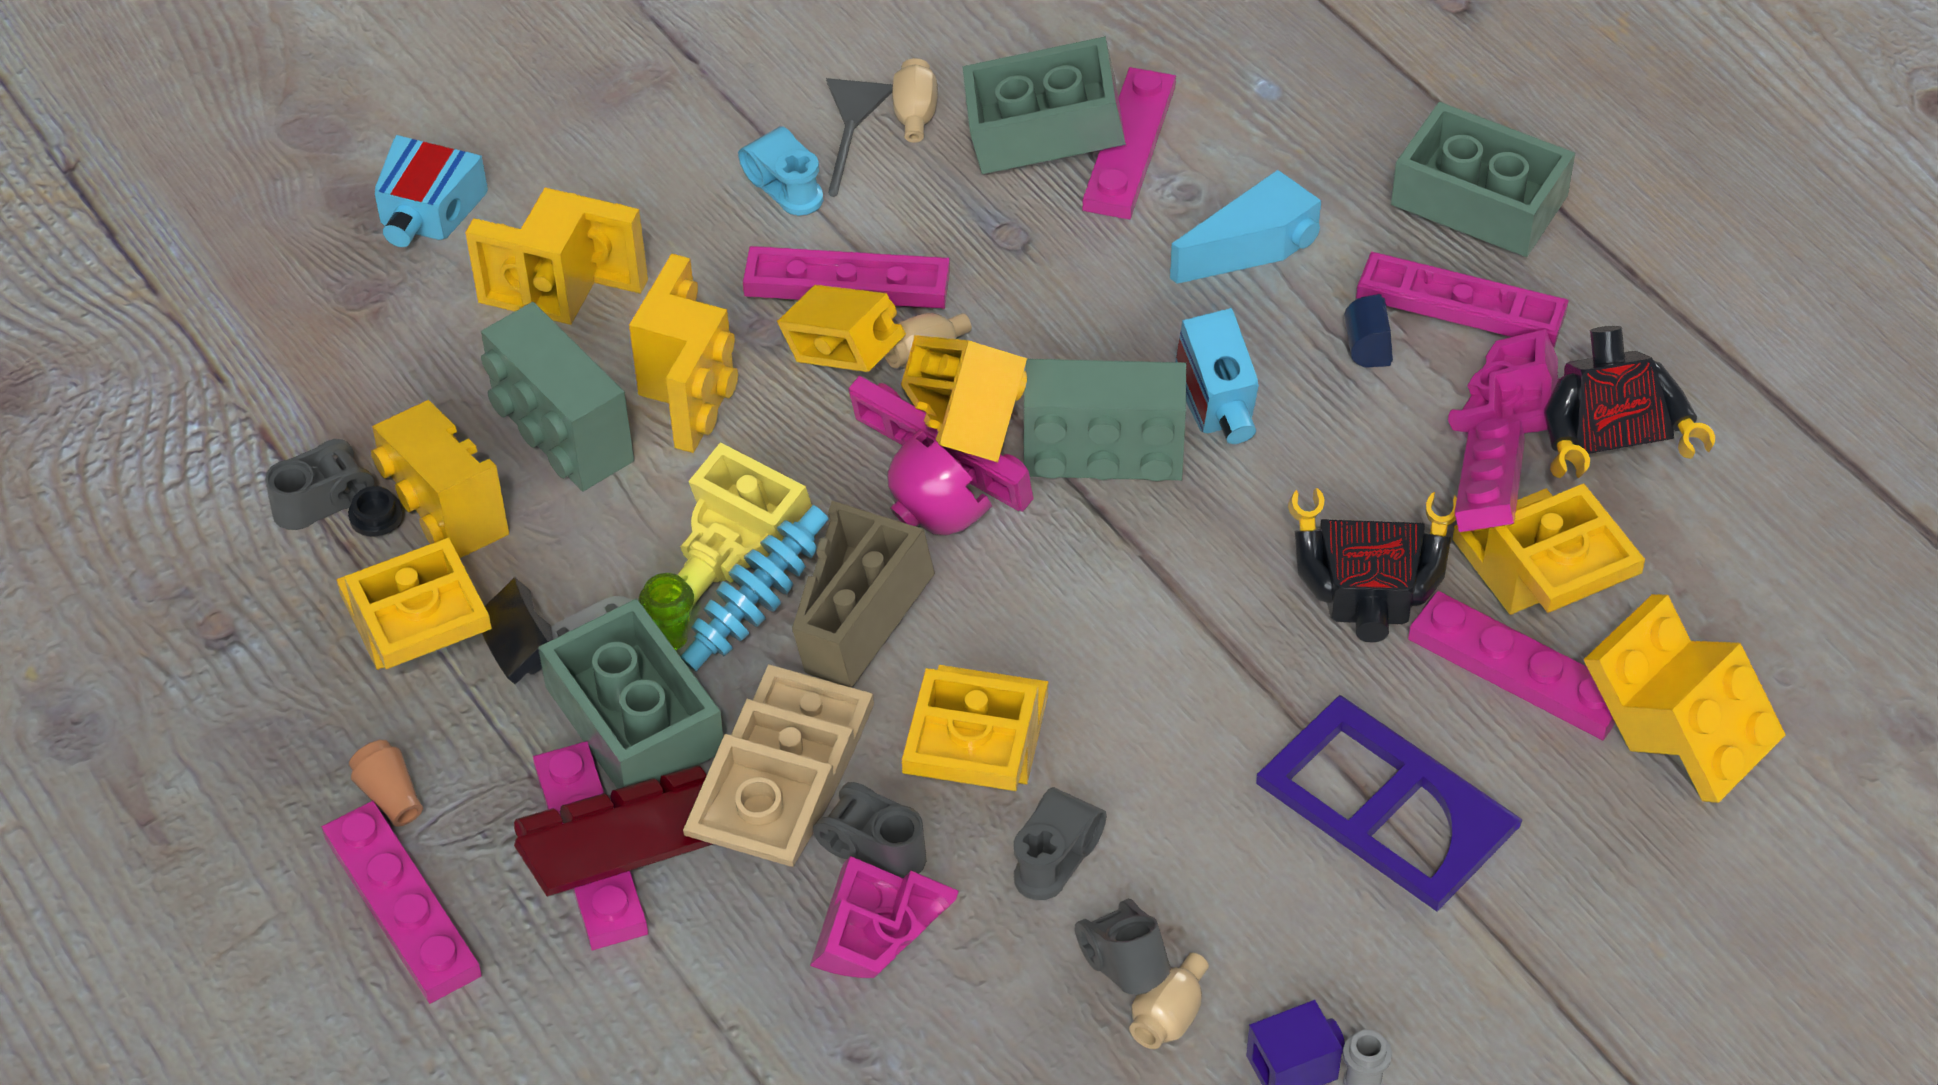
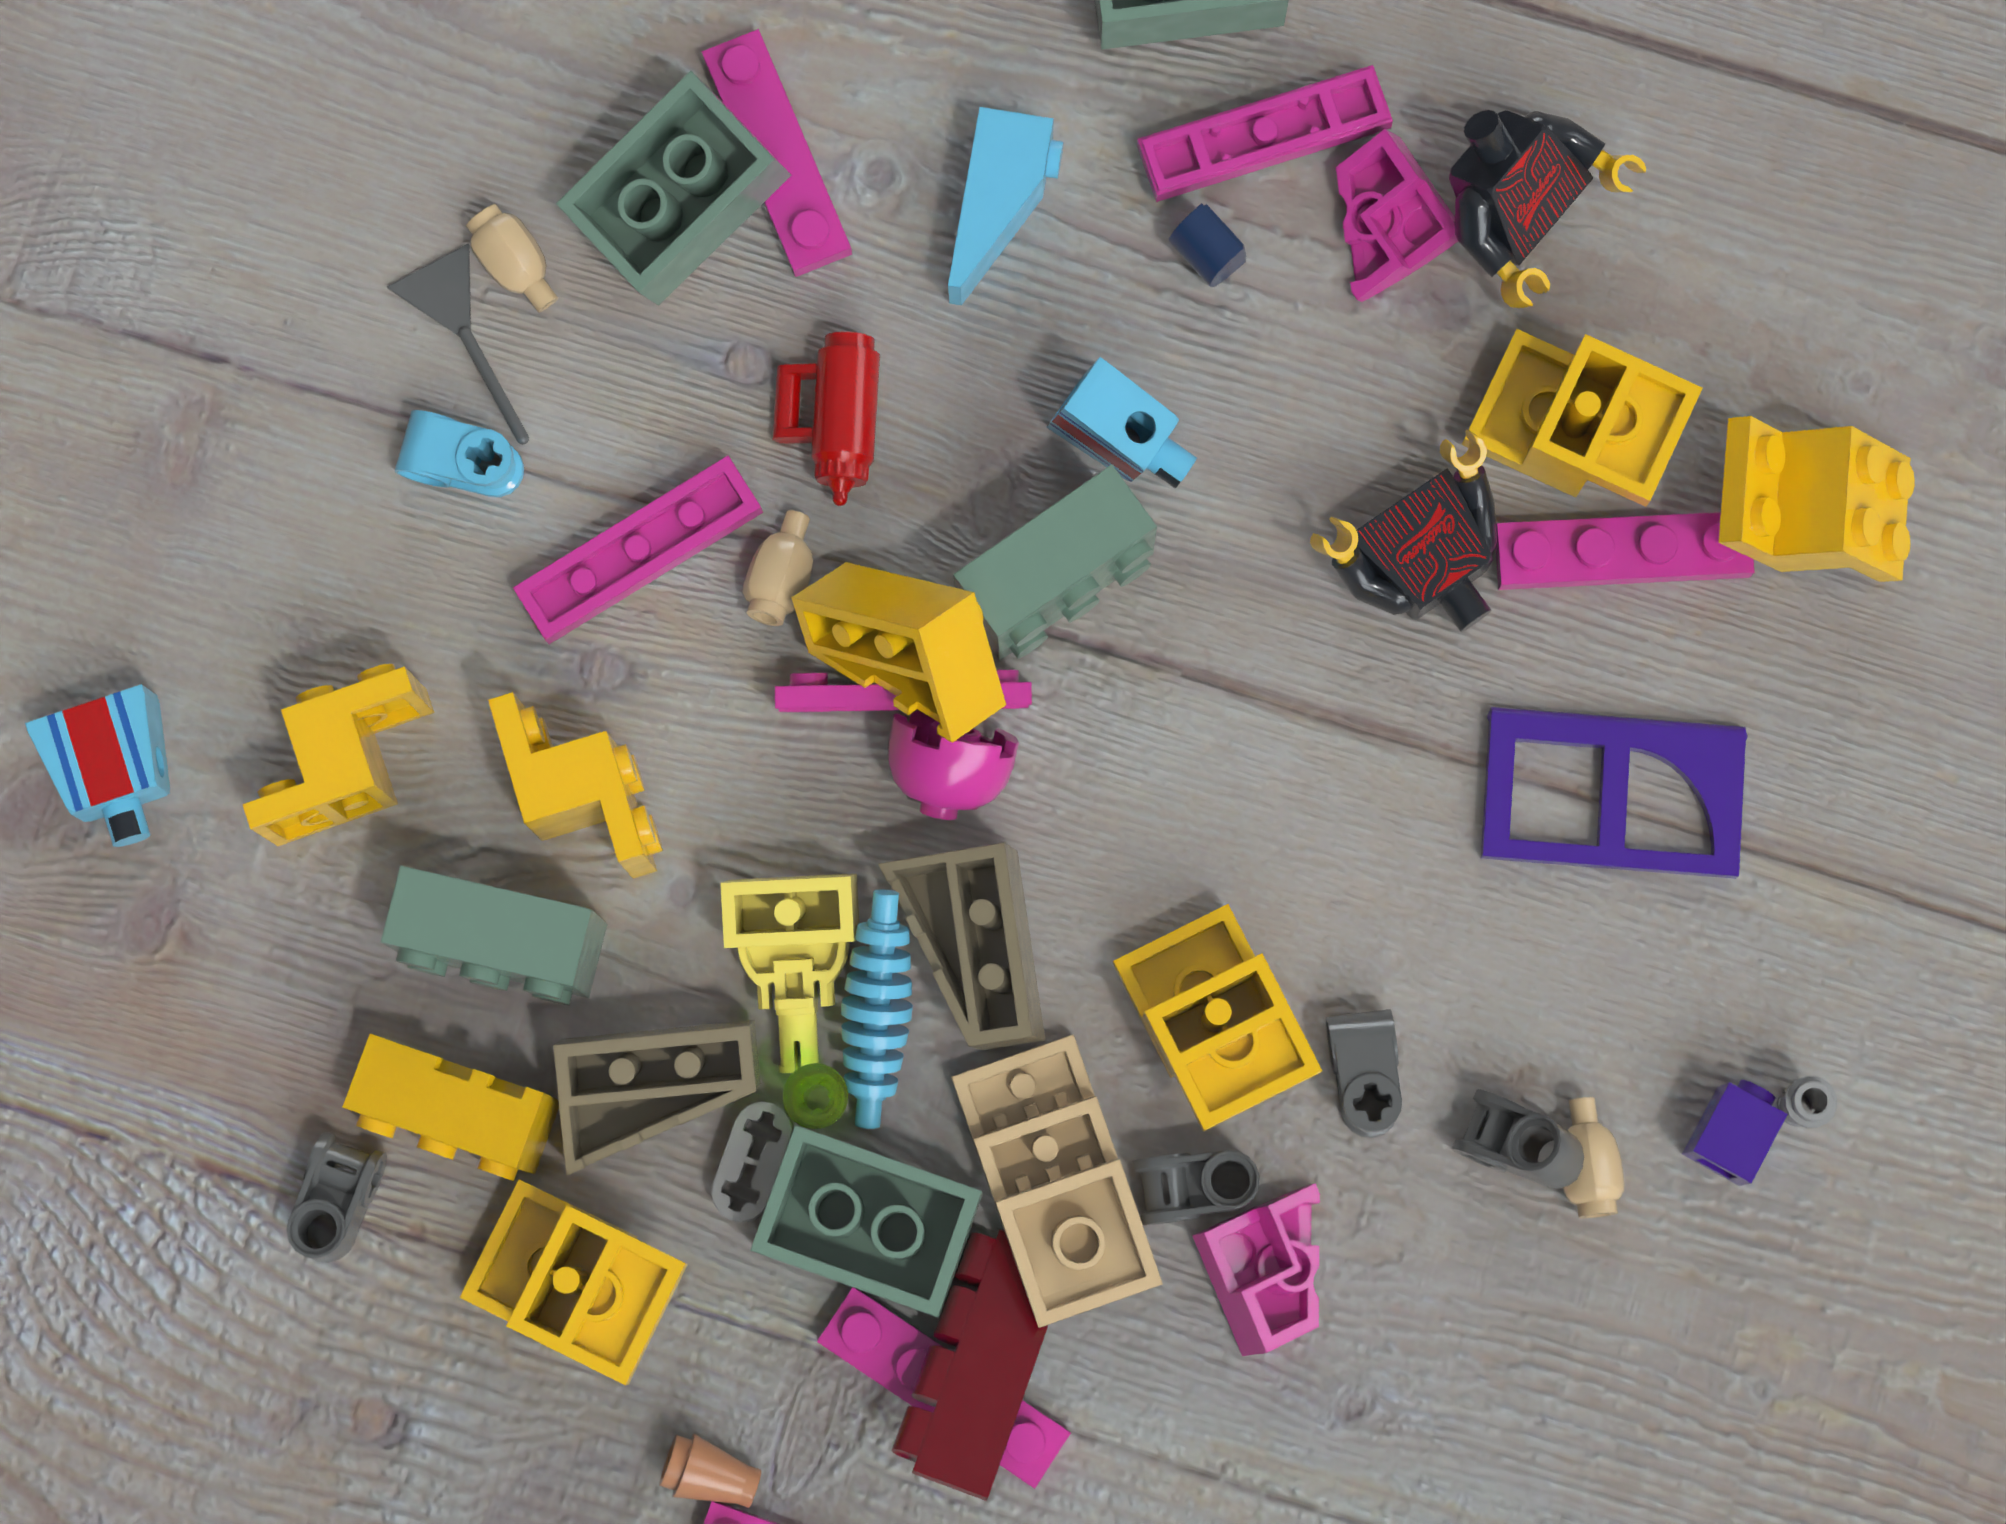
camera: 35 degrees left, 30 degrees up
(375, 511) = (416, 1184): black plate -> none
(516, 631) = (695, 1231): black slope -> none
(568, 537) = (646, 1082): none -> dark tan wedge
(841, 327) = (702, 631): yellow brick -> none
(1040, 278) = (843, 410): none -> red piece
(1490, 475) = (1474, 370): dark pink plate -> none

